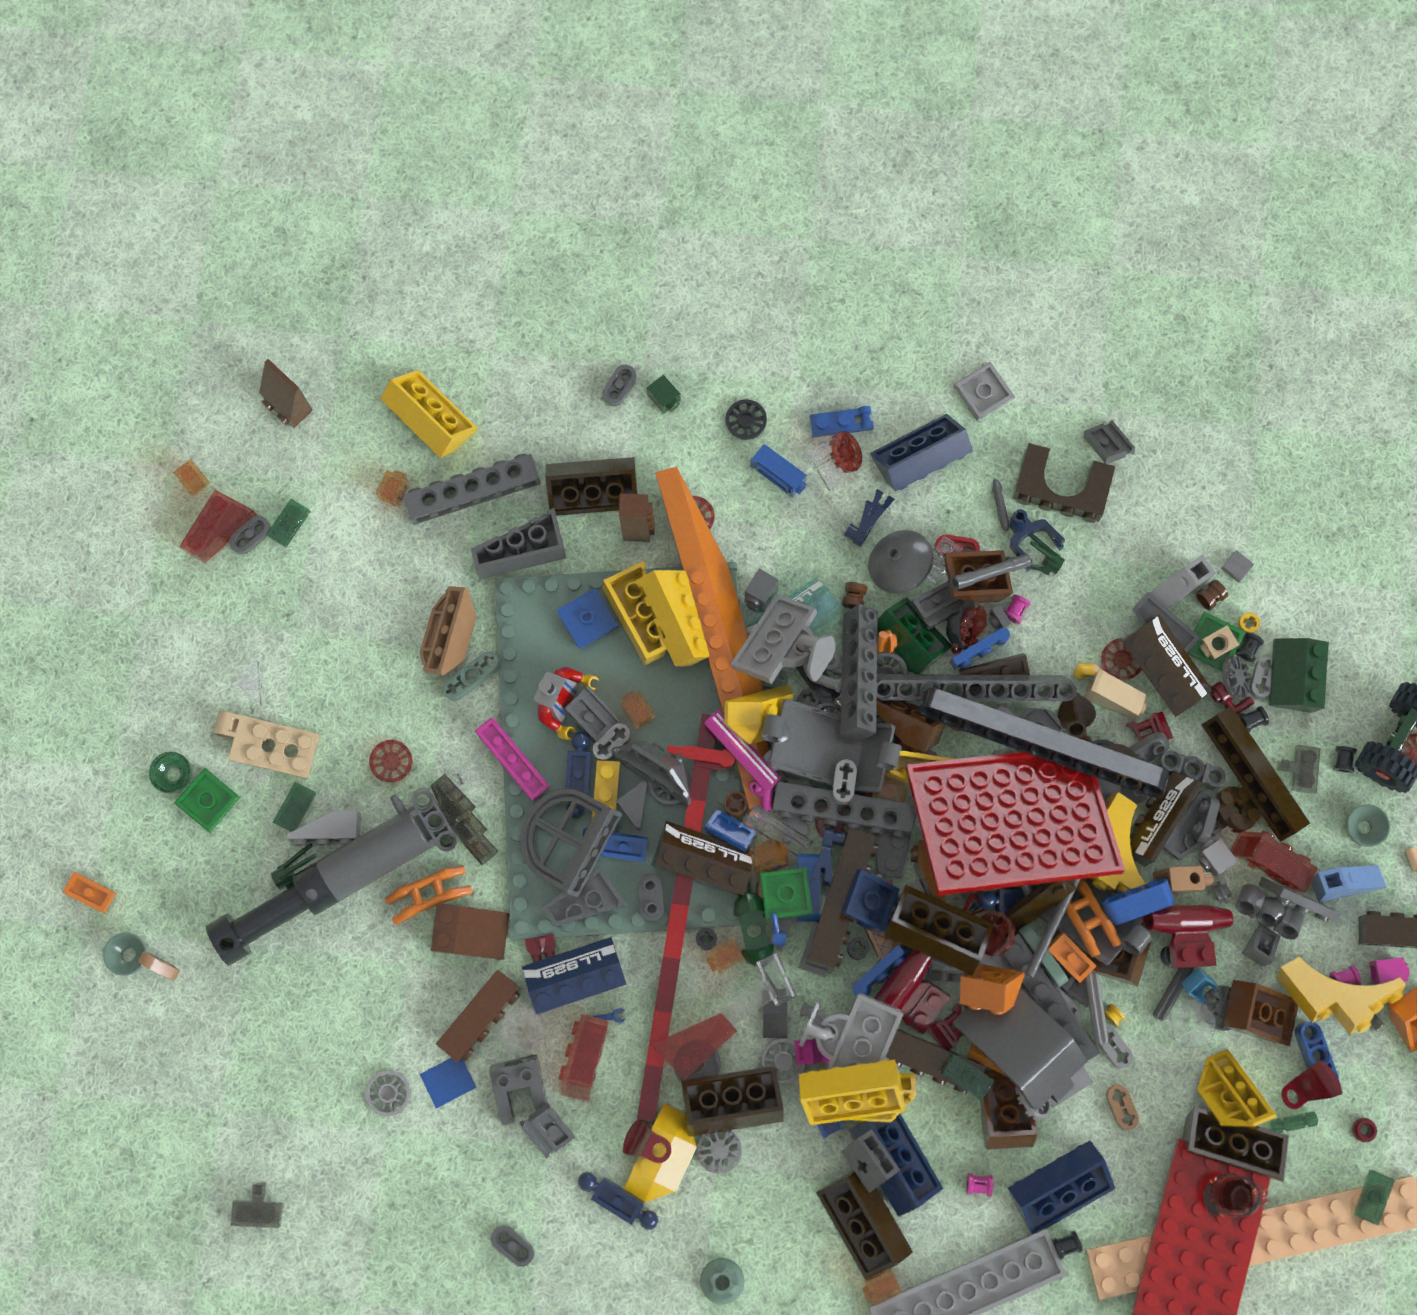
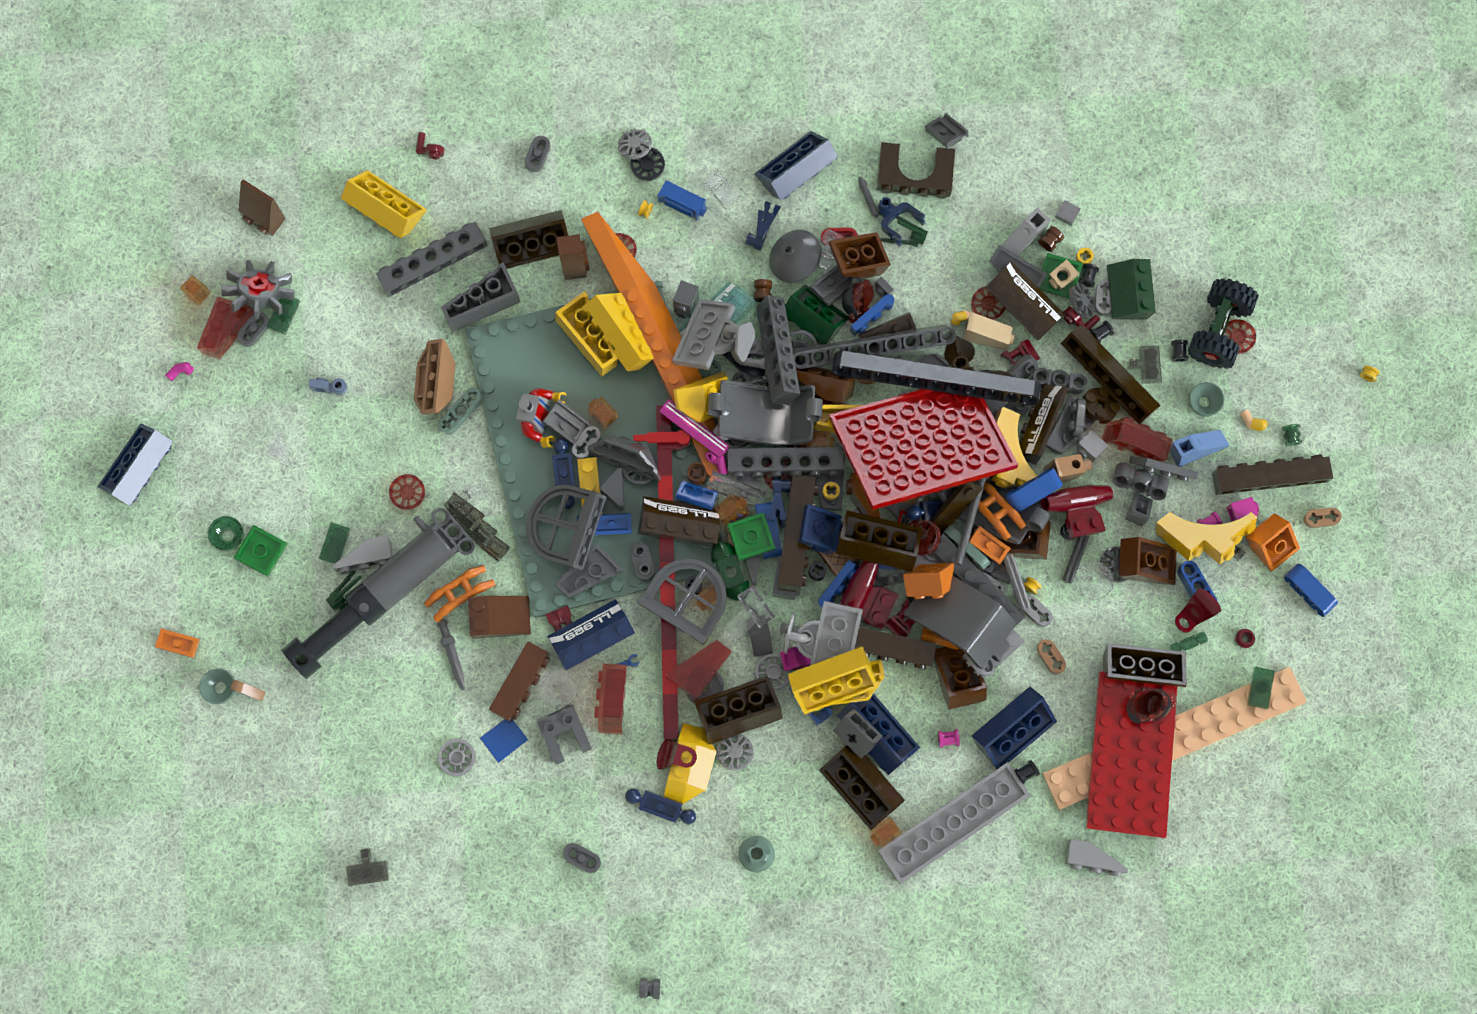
camera: 15 degrees left, 0 degrees up
(83, 671) = (135, 464): none -> slope
(156, 565) = (179, 368): none -> dark pink arm
(250, 735) = (286, 492): tan hinge -> none
(263, 489) = (258, 289): none -> dark grey gear
(317, 616) = (323, 385): none -> sand blue plate
(393, 487) = (365, 270): clear orange brick -> none
(404, 951) = (448, 642): none -> dark grey sword
(499, 361) = (433, 150): none -> dark red plate
(512, 759) = (507, 471): dark pink tile -> none
(547, 1130) = (592, 760): dark grey plate -> none
(587, 618) = (547, 347): blue plate -> none
(664, 394) = (576, 155): dark green brick -> none
(675, 974) = (674, 617): none -> dark grey window
(733, 473) = (645, 209): none -> yellow bush
(735, 393) = (634, 144): none -> light grey wheel
(779, 938) = (752, 573): blue hand -> none
(837, 421) = (726, 152): blue plate -> none
(839, 781) = (786, 438): light grey beam -> none
(844, 452) = (733, 176): clear red wheel -> none
(886, 641) = (795, 321): orange plate -> none
(893, 847) = (831, 497): none -> yellow bush
(967, 1076) = (923, 653): clear green plate -> none
(969, 578) = (854, 257): dark grey piece -> none
(984, 391) = (838, 107): light grey tile -> none
(1017, 608) = (896, 277): dark pink bush -> none
(1196, 982) = (1093, 547): dark azure piece -> none
(1222, 892) = (1100, 473): dark grey plate -> none
(1232, 1093) = (1135, 627): yellow wedge -> none

